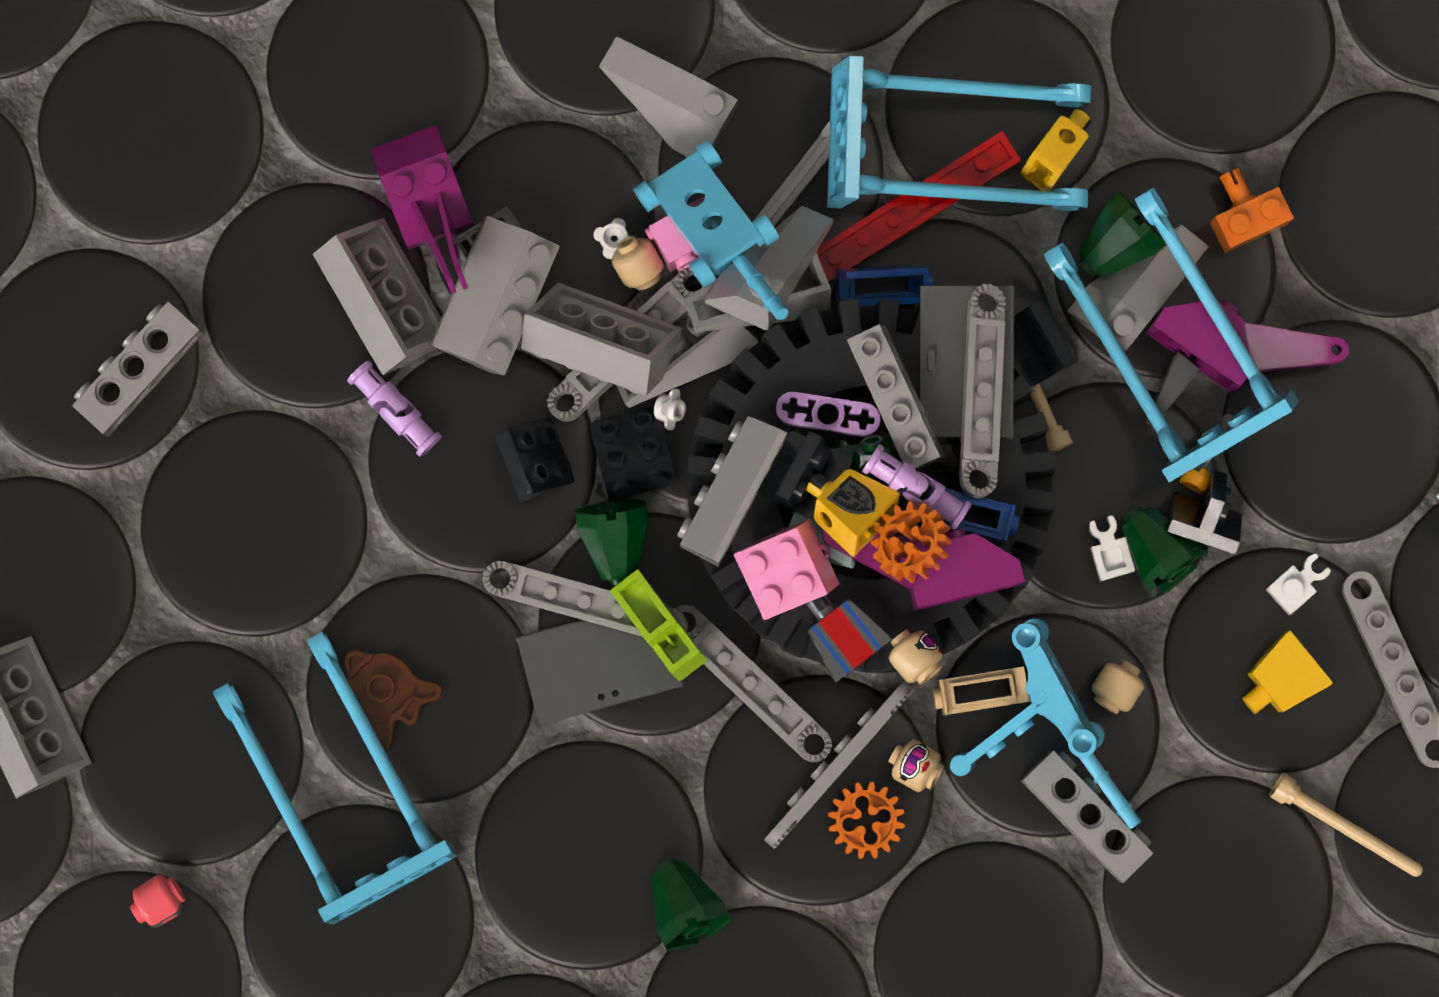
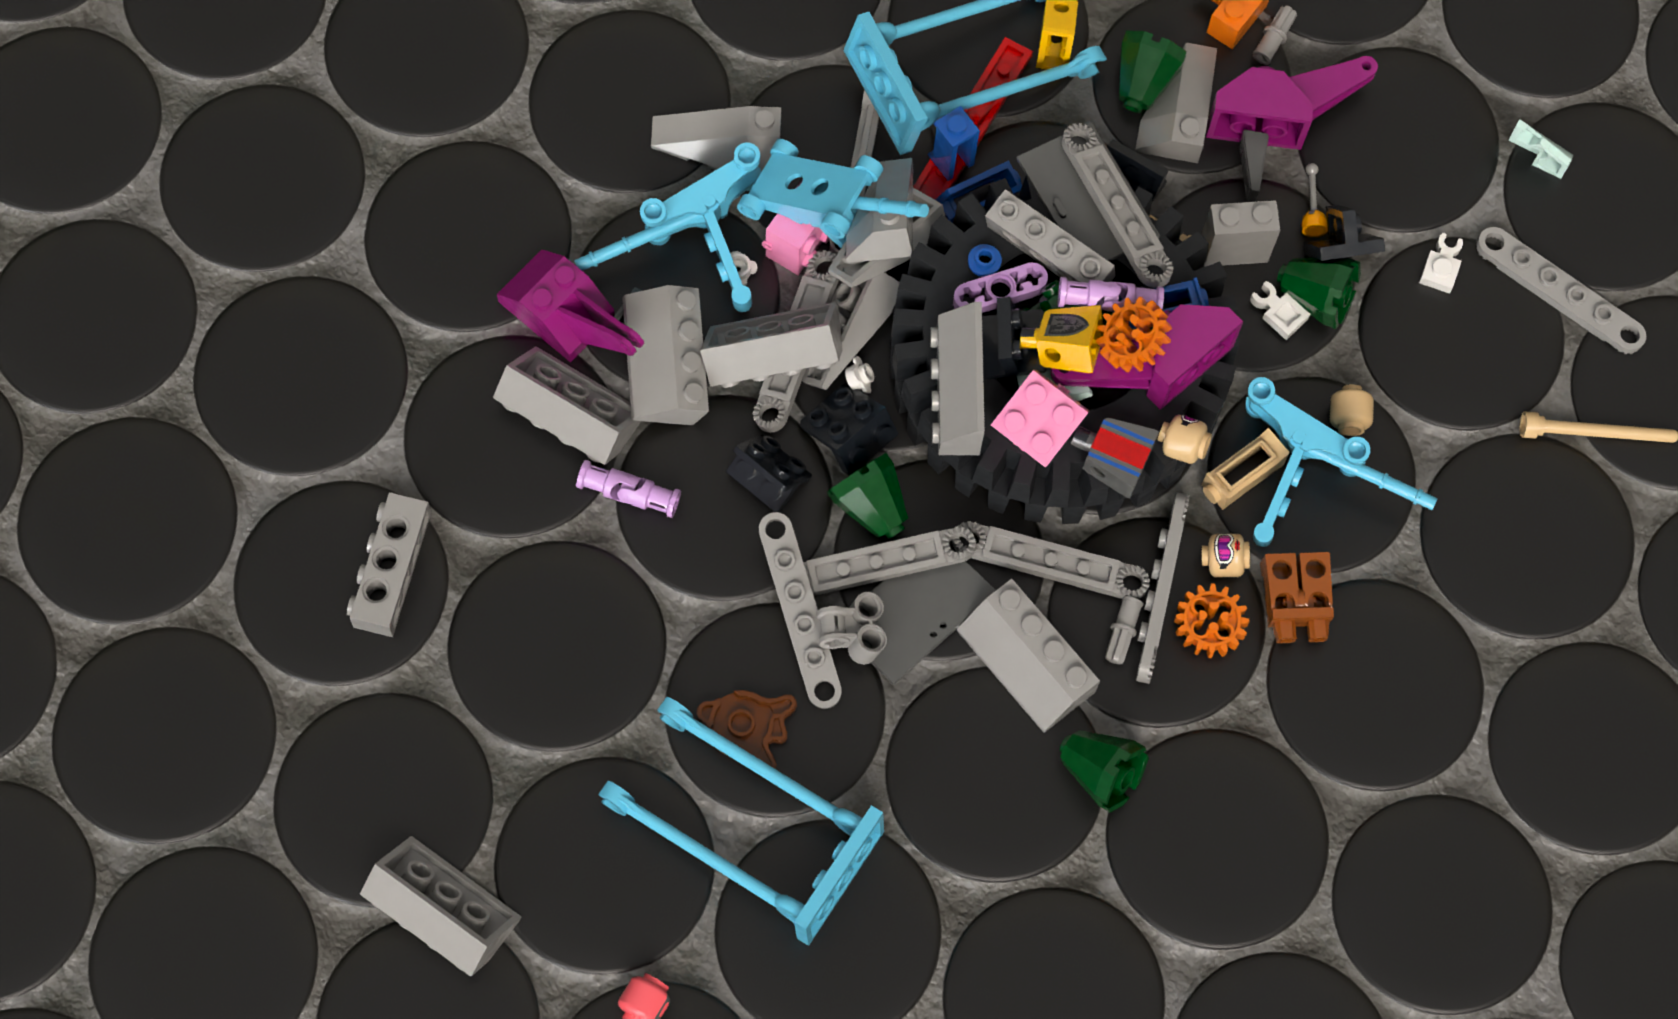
camera: 30 degrees left, 15 degrees down
(489, 611) = (799, 609): none -> light grey plate
(522, 654) = (848, 626): none -> light grey piece
(598, 164) = (699, 207): none -> medium azure piece
(637, 263) = (769, 274): tan head -> none
(658, 625) = (952, 543): lime slope -> none
(676, 764) = (1028, 656): none -> light grey slope
(780, 785) = (1123, 629): none -> light grey axle
(828, 389) = (984, 269): none -> blue plate
(879, 224) = (954, 135): none -> blue window
(961, 850) = (1298, 594): none -> dark orange hips
(1042, 782) = (1371, 531): light grey brick -> none
(1109, 458) = (1241, 232): none -> light grey brick
(1215, 439) = (1314, 176): medium azure piece -> none
(1273, 262) = (1274, 35): none -> light grey axle
(1285, 676) = (1477, 335): yellow torso -> none

